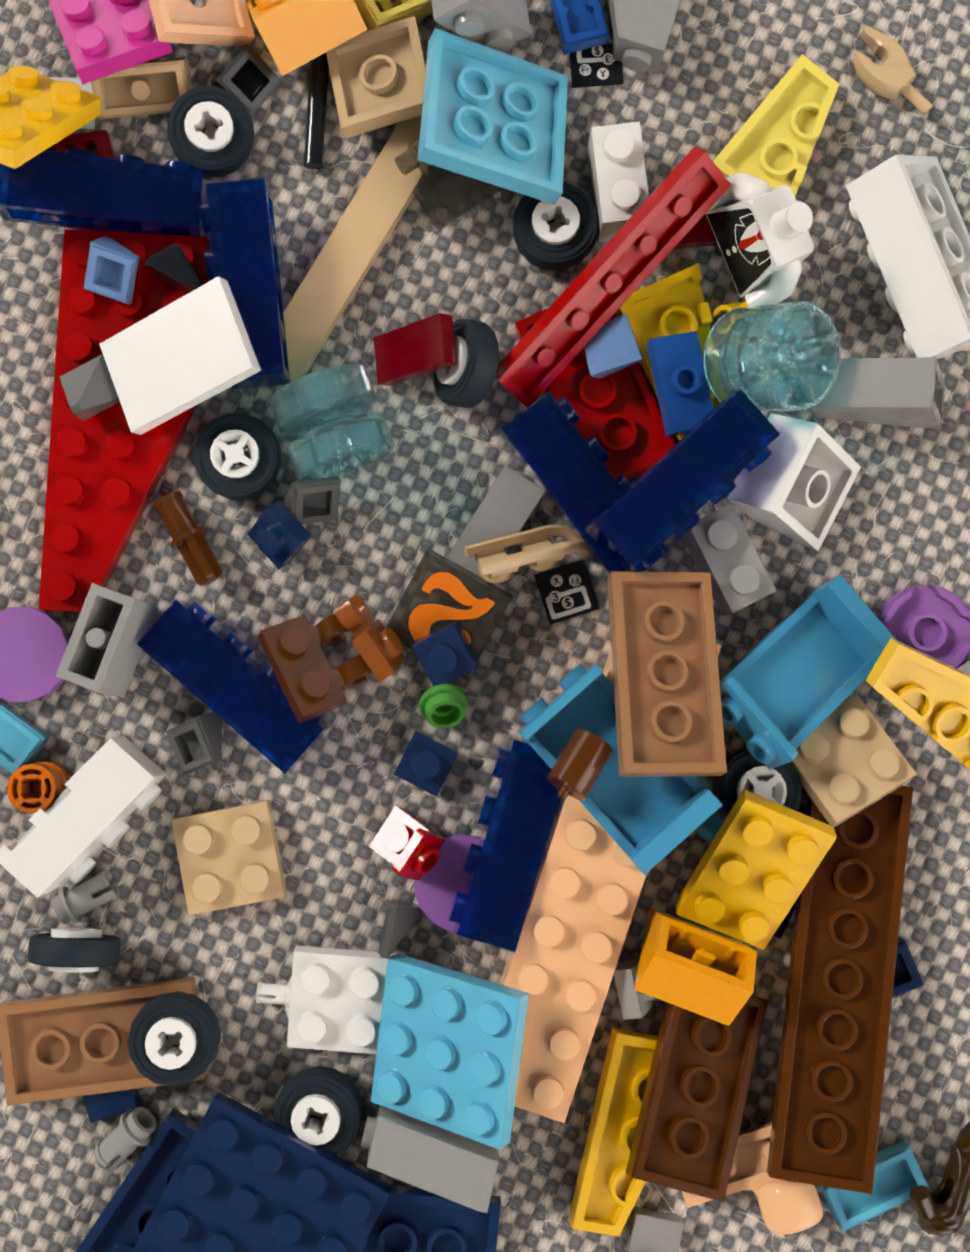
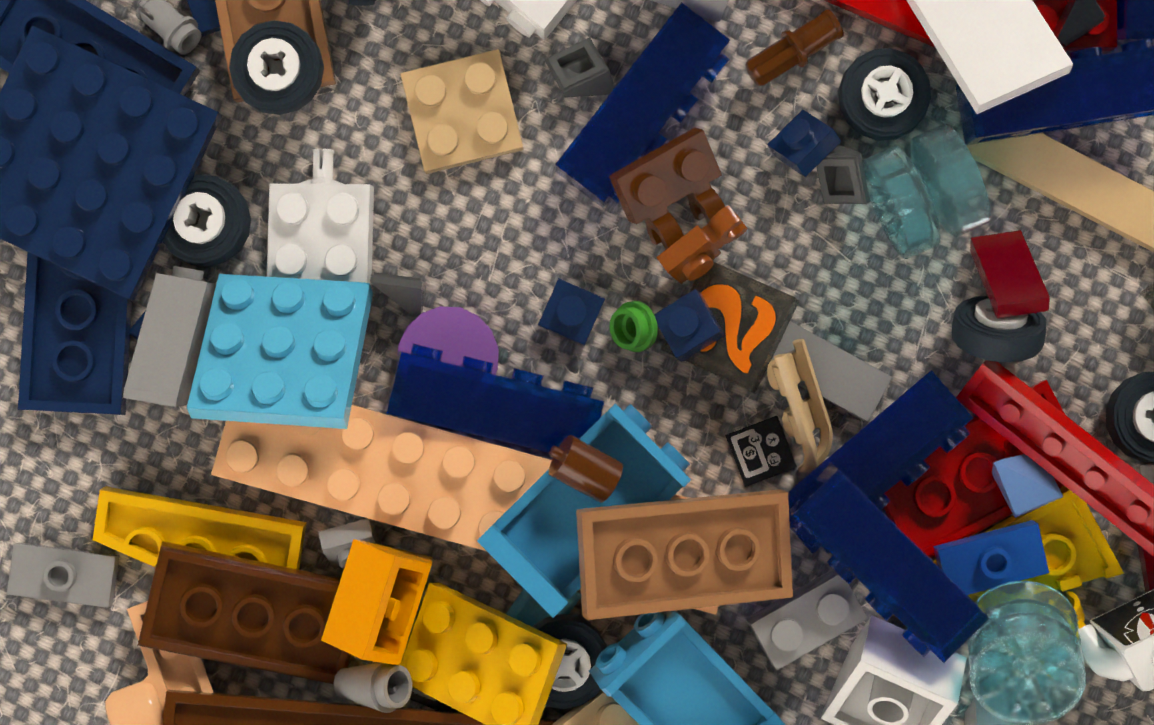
camera: 85 degrees right, 0 degrees up
(407, 844) = (486, 297): bracket -> none
(774, 972) = (375, 685): none -> light grey cone

